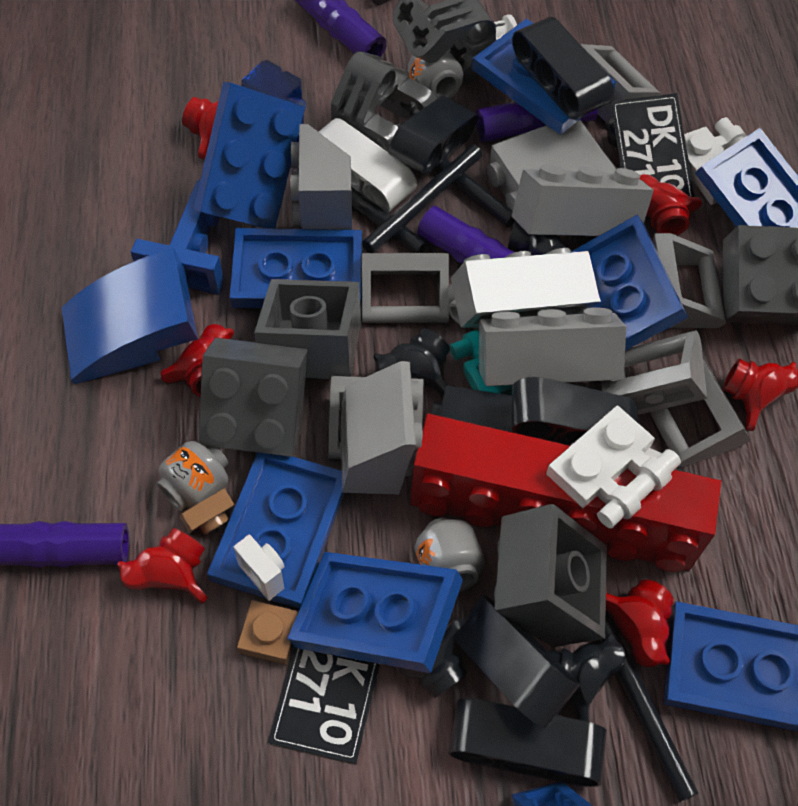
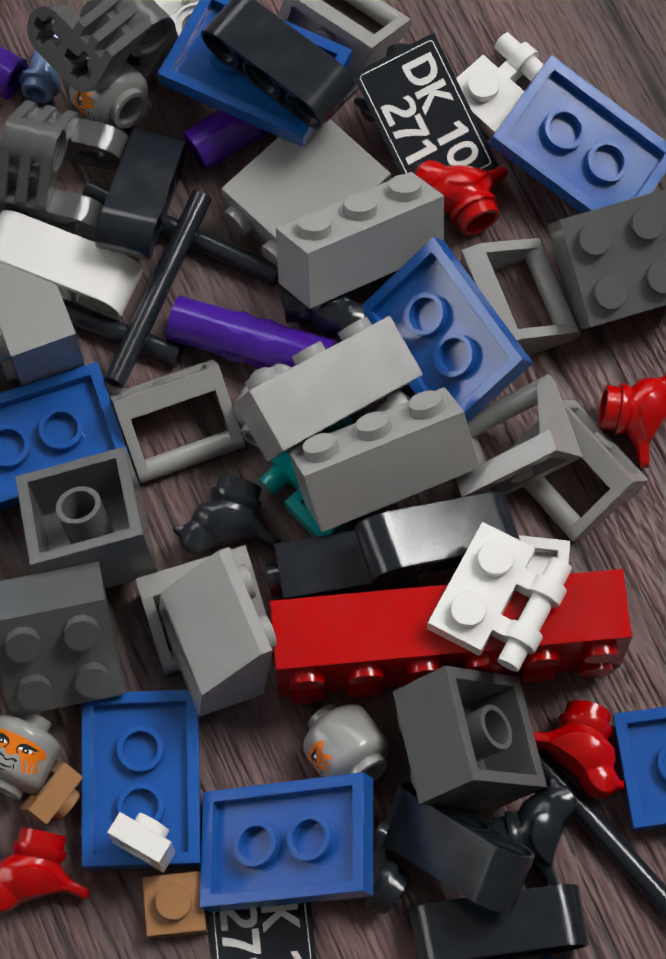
camera: 15 degrees left, 10 degrees up
(394, 51) = (40, 80): none -> medium blue pin

